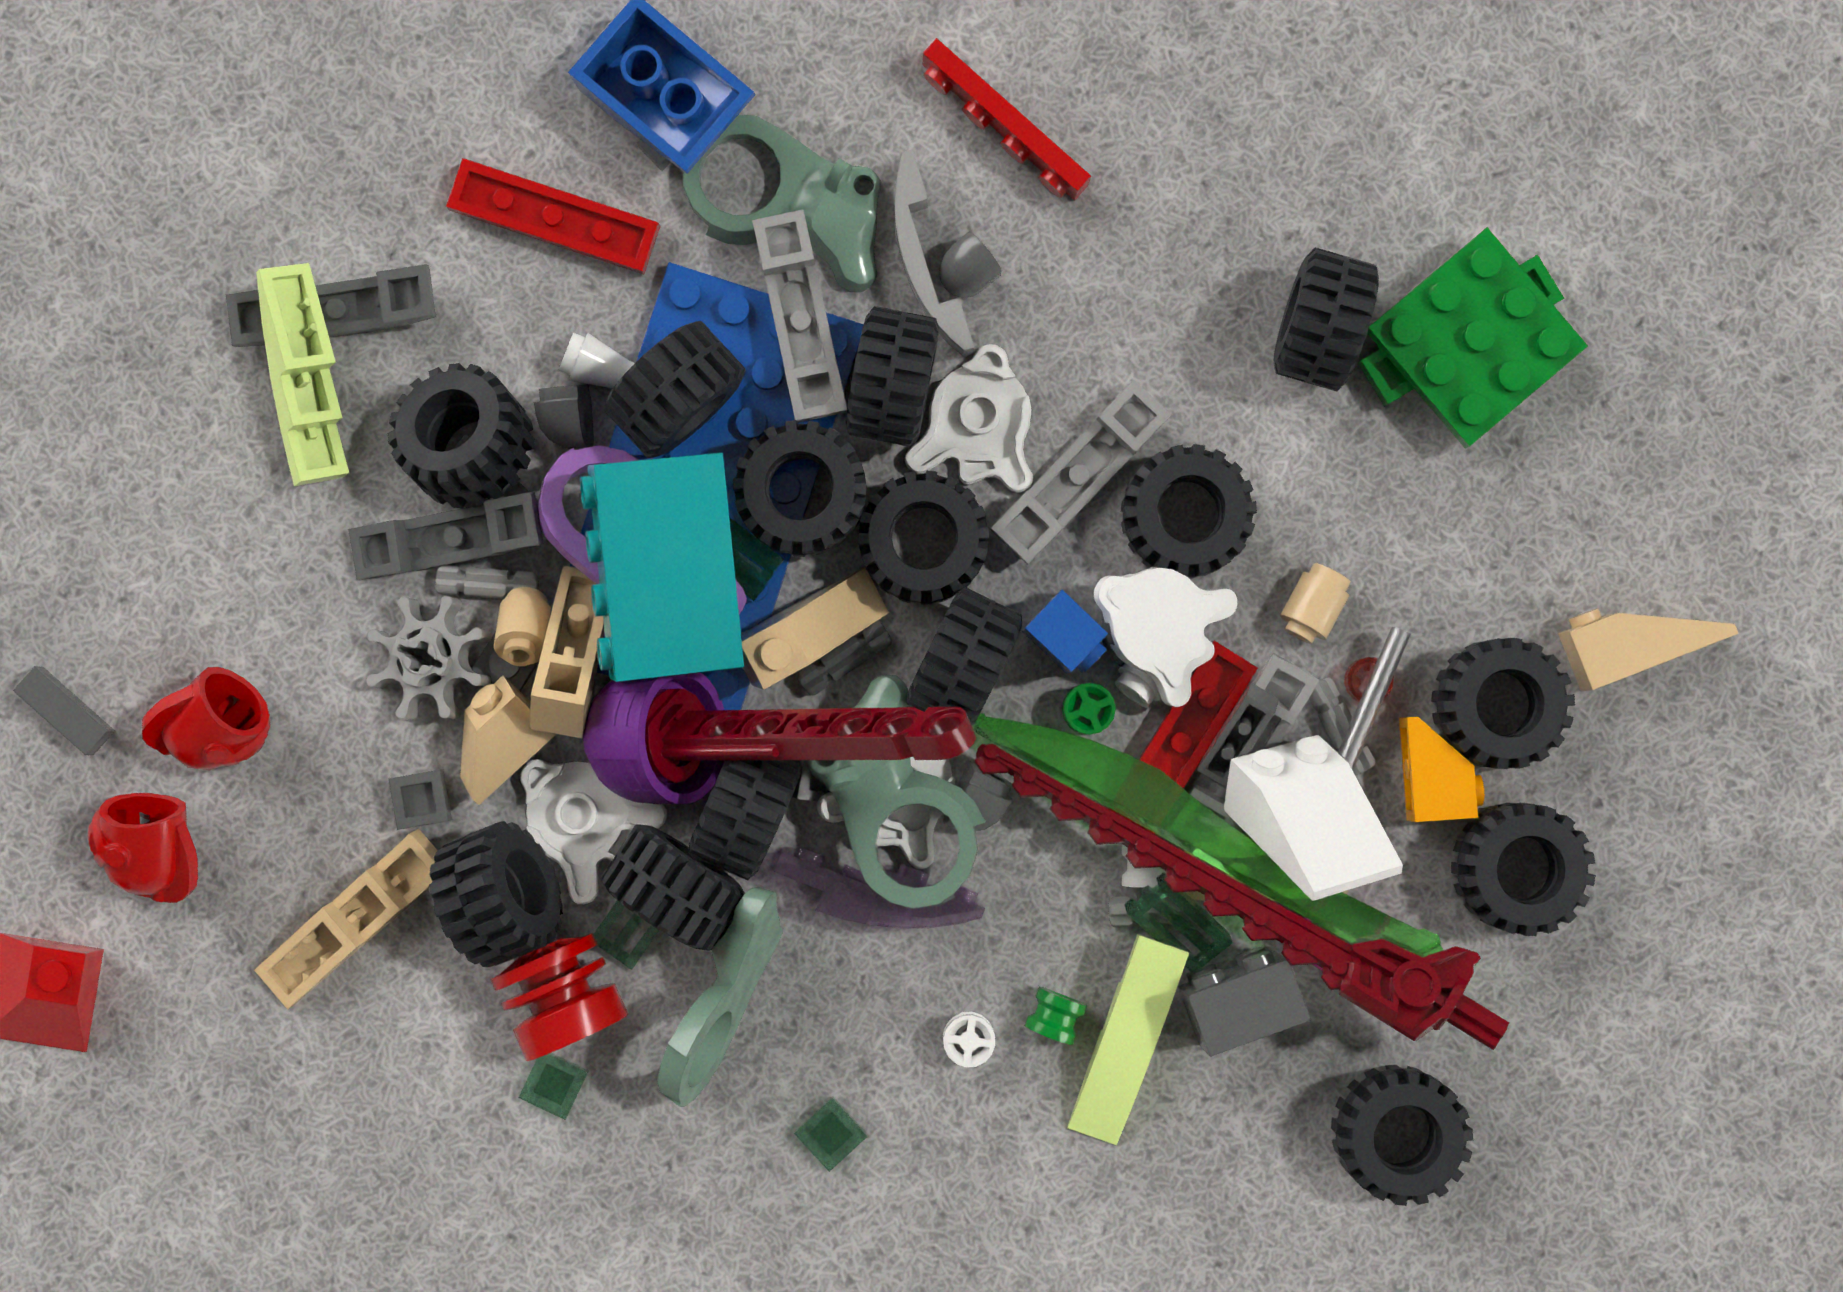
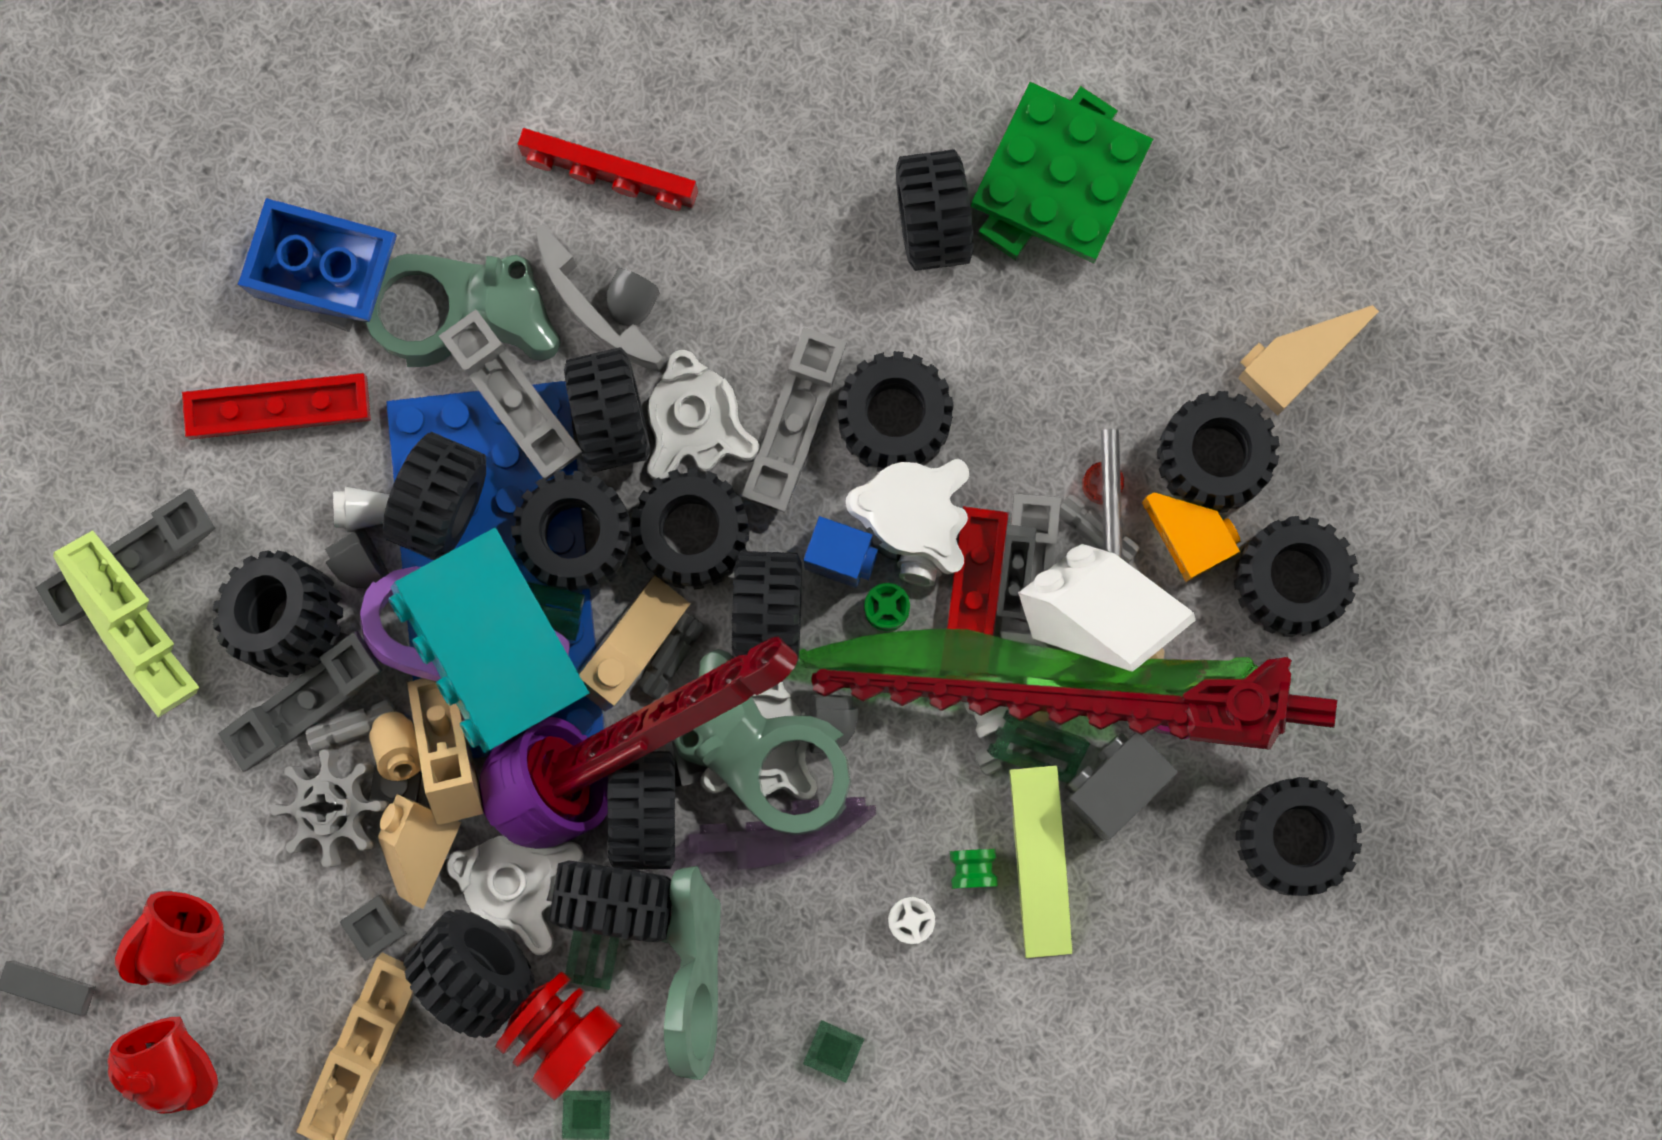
camera: 15 degrees left, 5 degrees down
(1315, 603) = (1031, 440): tan brick -> none

